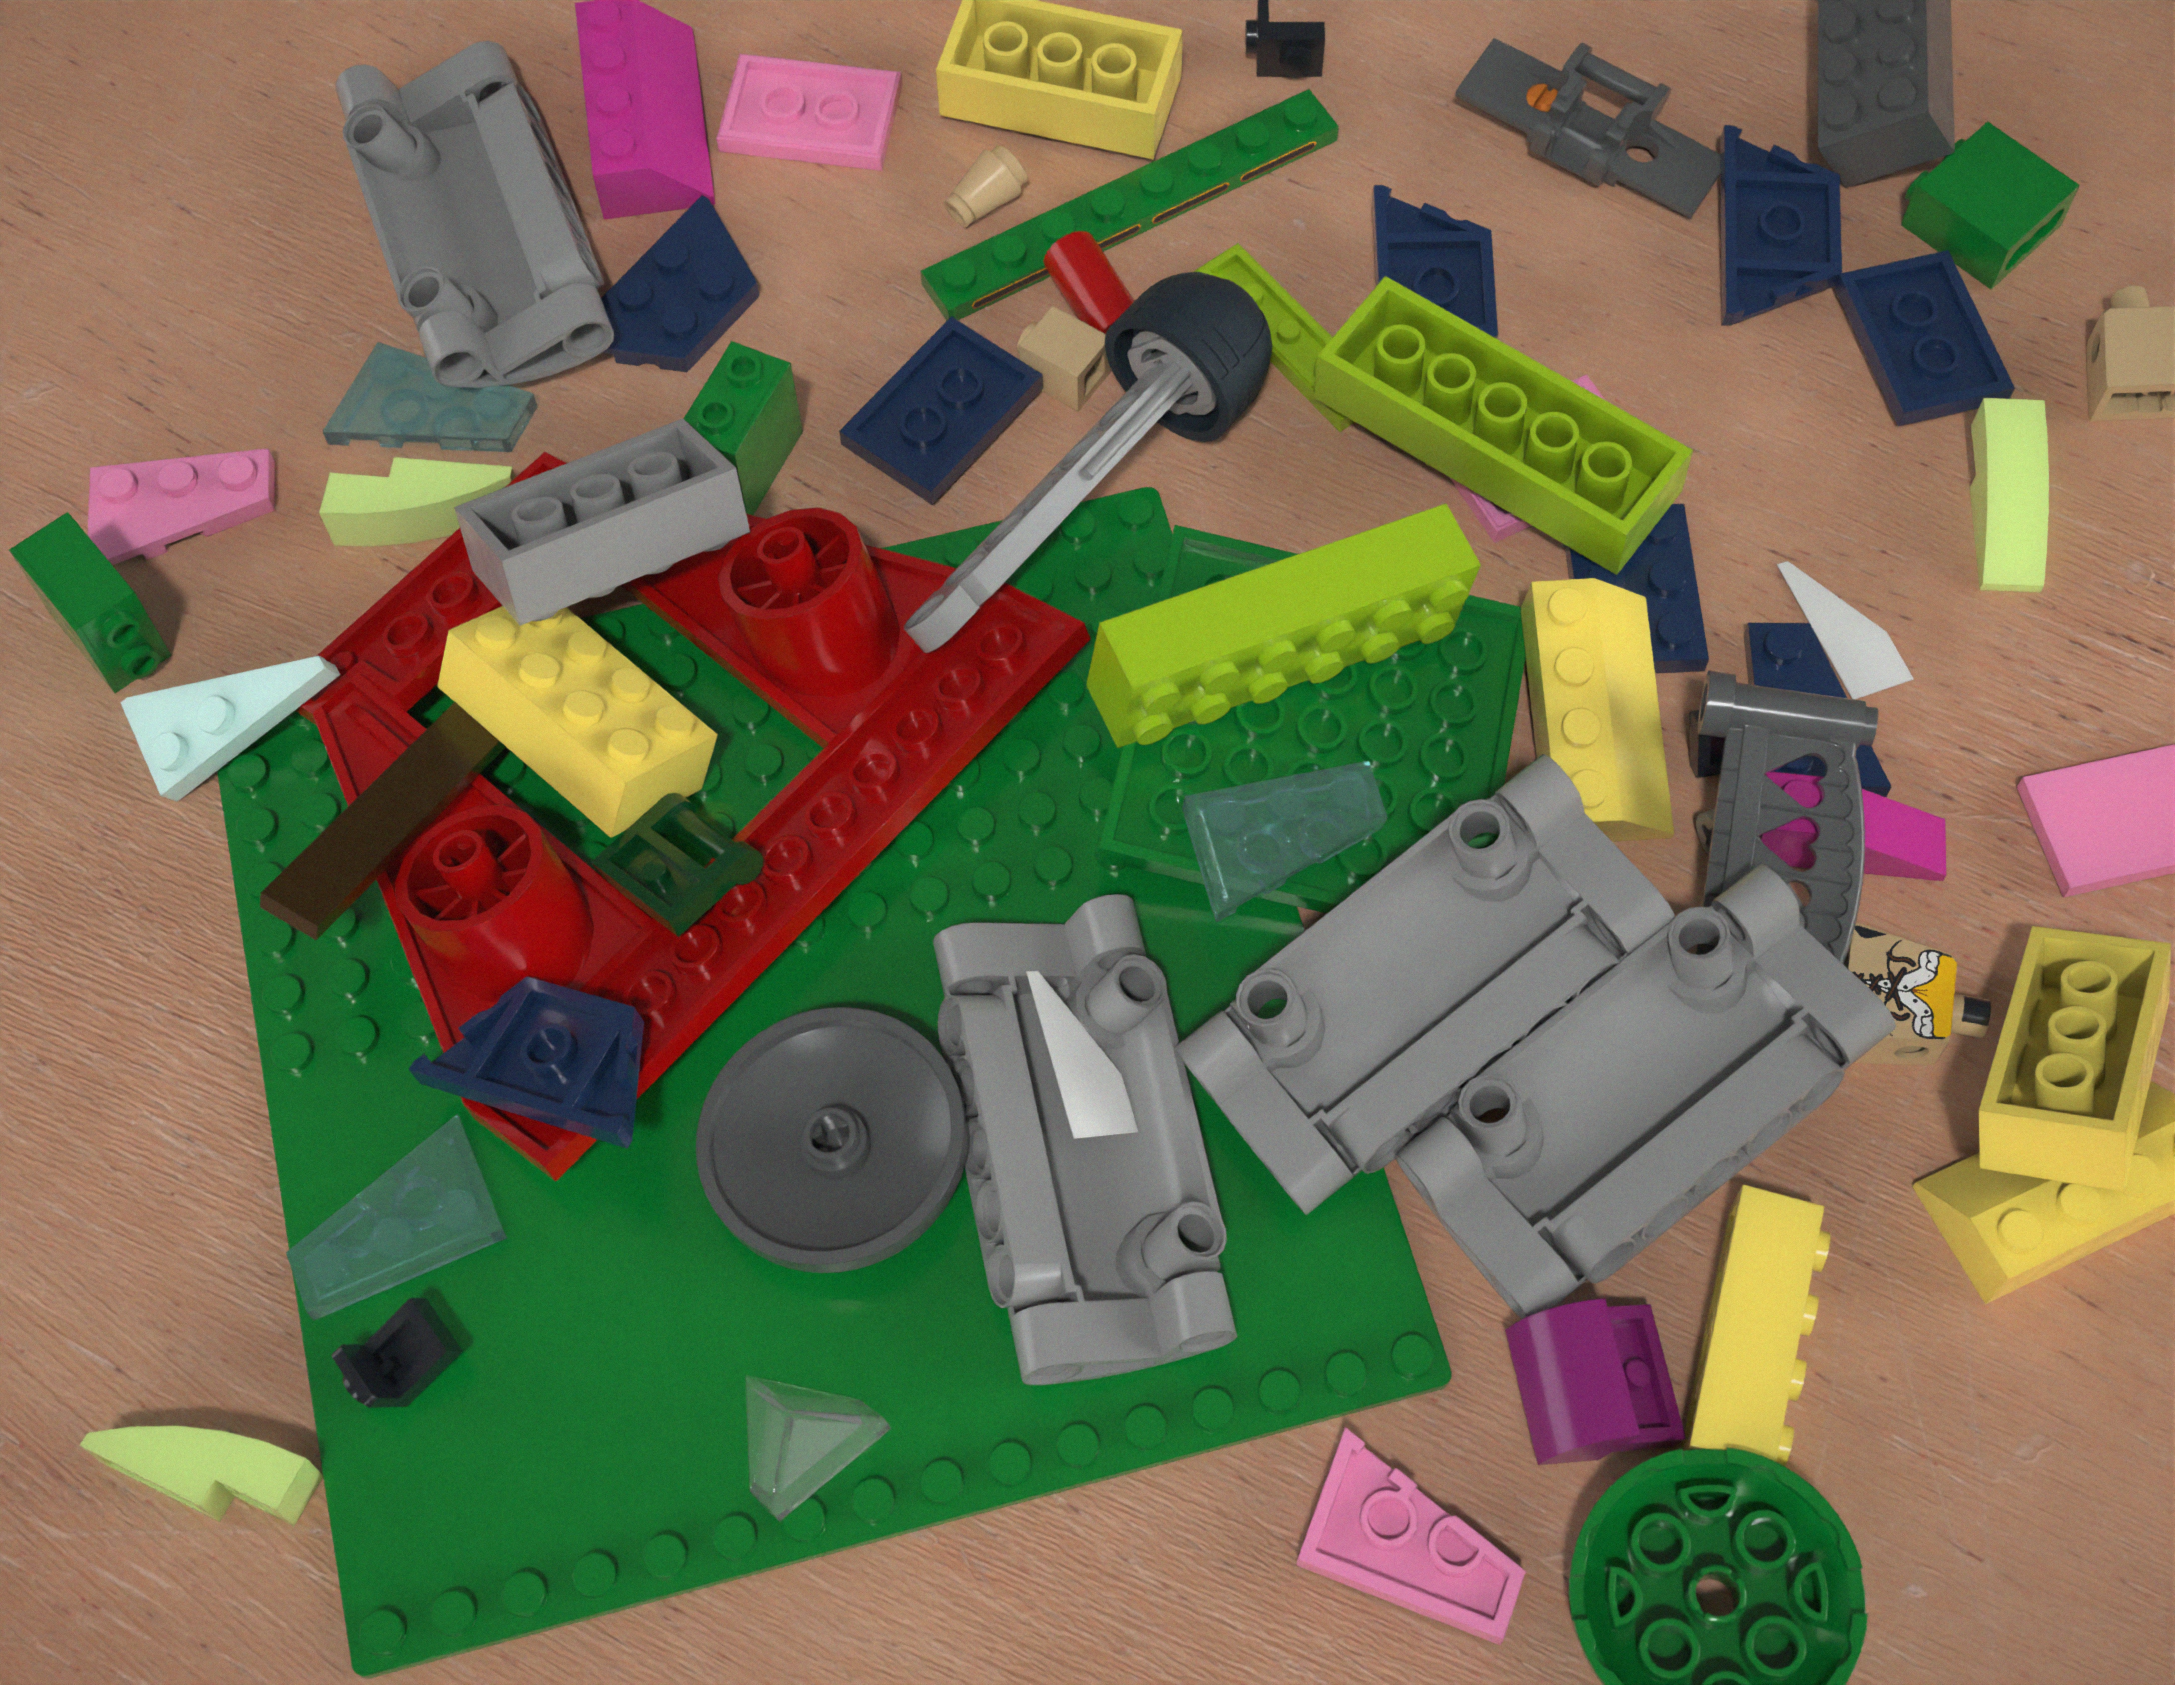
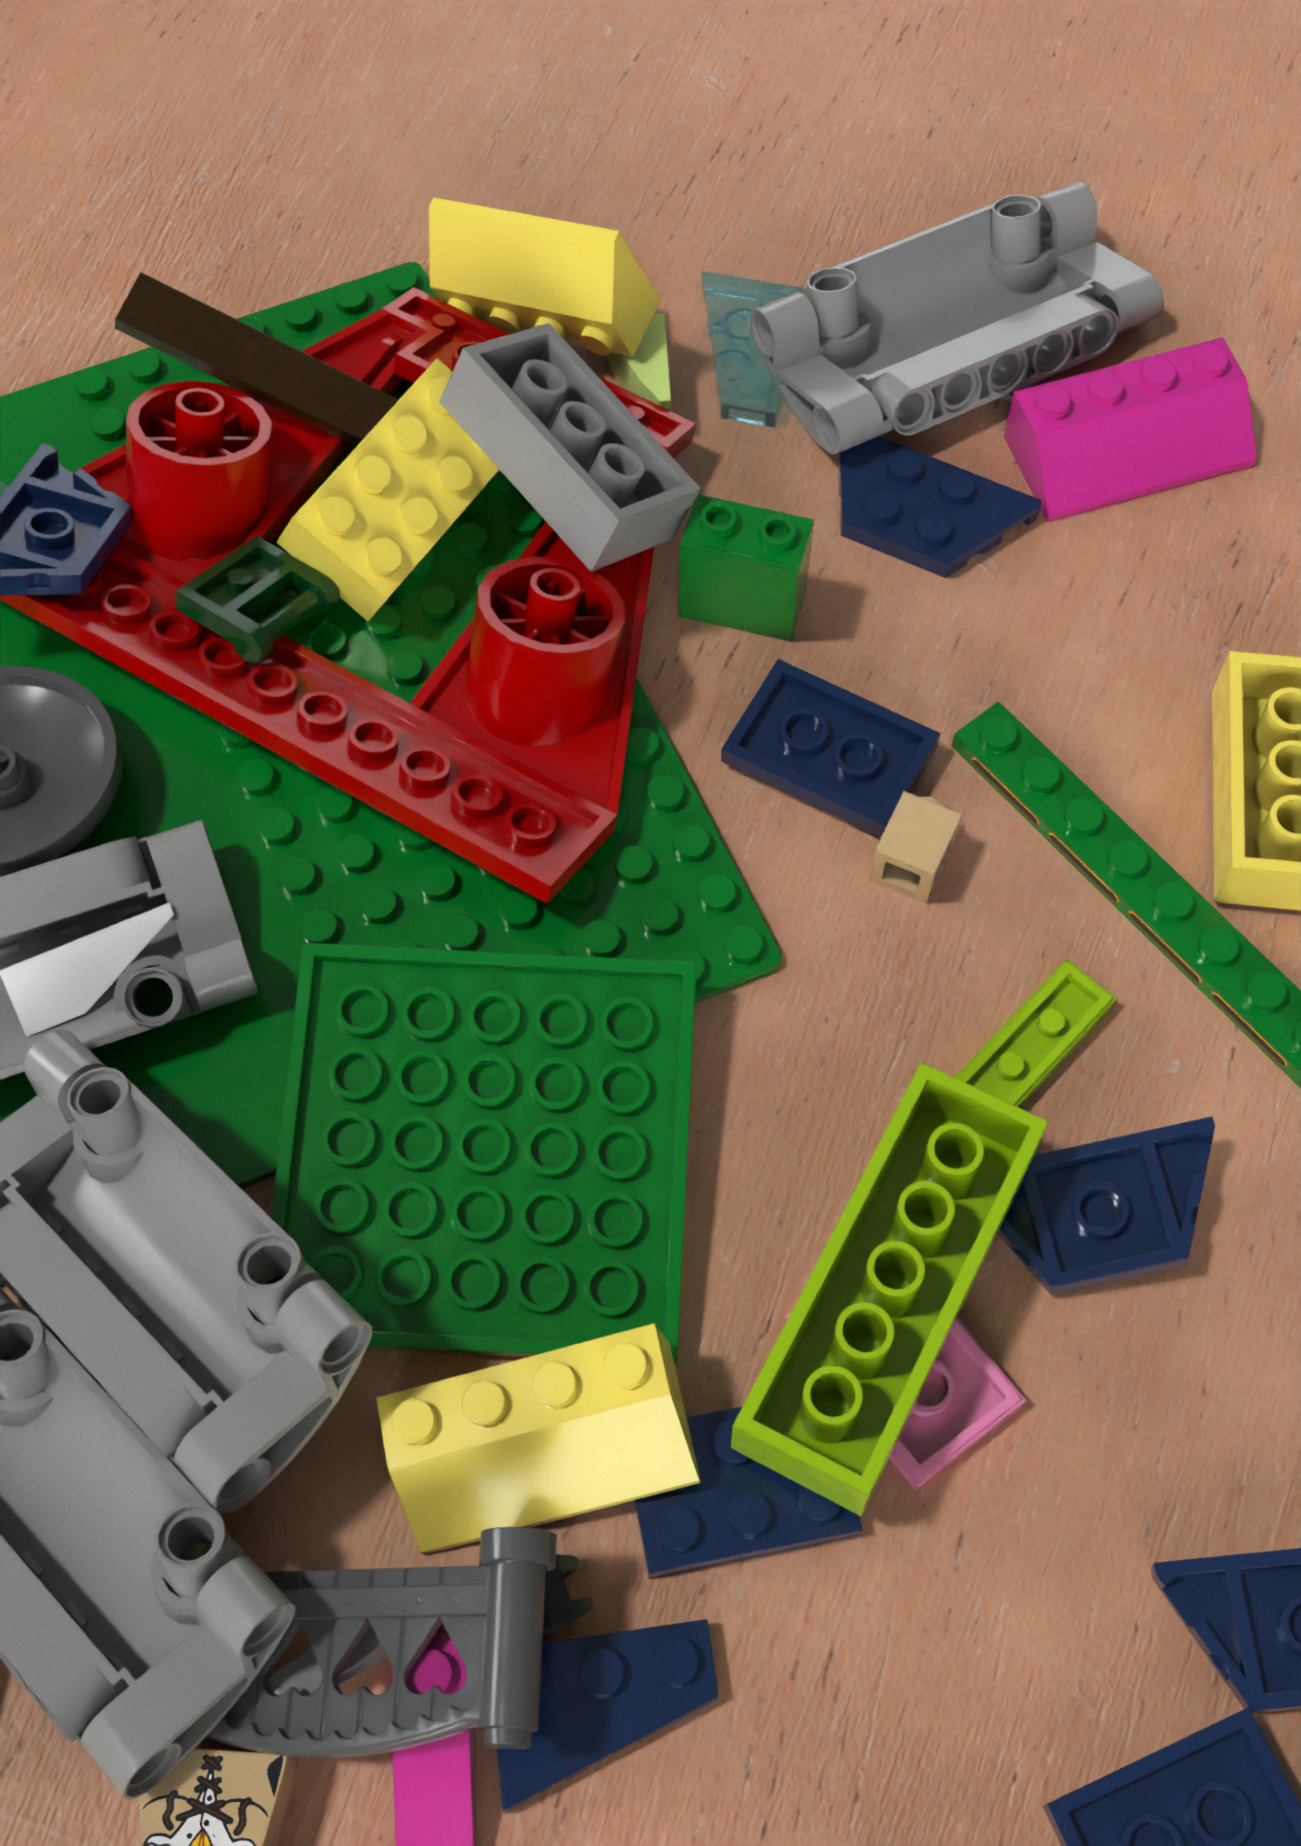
camera: 80 degrees right, 0 degrees up
(91, 602) = (479, 139): green piece -> none
(161, 501) = (613, 187): bright pink wing -> none
(207, 723) = (382, 255): light aqua wing -> none
(331, 550) = (538, 272): none -> light yellow slope
(810, 112) = (1182, 578): bright pink tile -> none
(986, 186) = (1123, 743): tan cone -> none
(1087, 280) = (1006, 865): red brick -> none
(1187, 359) = (925, 954): piece -> none
(1274, 828) = (343, 1110): clear light blue wing -> none
(1280, 626) = (555, 1064): lime brick -> none
(1853, 643) = (716, 1762): white sticker -> none

